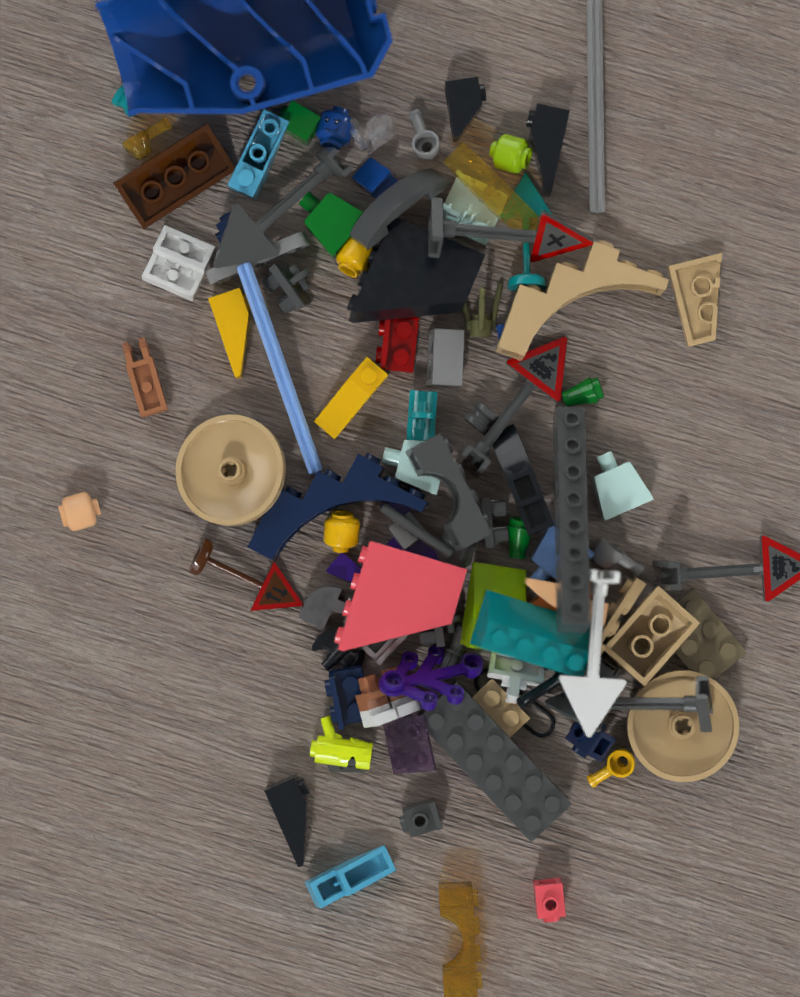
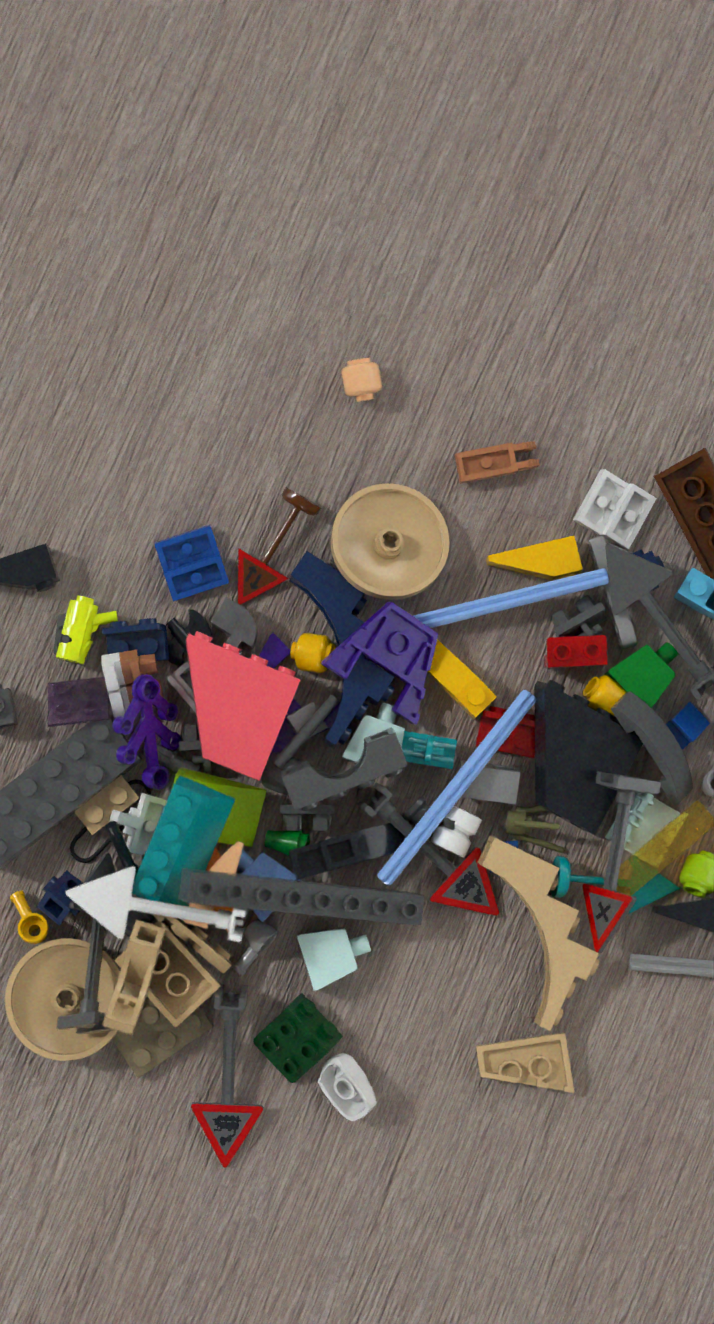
camera: 90 degrees right, 5 degrees down
(268, 653) = (191, 562): none -> blue slope
(317, 286) = (576, 651): none -> red bracket
(327, 454) = (396, 644): none -> dark purple wing
(454, 385) = (456, 787): none -> light blue axle
(493, 383) = (455, 831): none -> white wheel
(585, 392) = (436, 929): green cone -> none
(660, 665) = (134, 977): none -> tan arch
(696, 510) = (297, 1038): none -> dark green bracket
(736, 460) = (347, 1087): none -> white piece

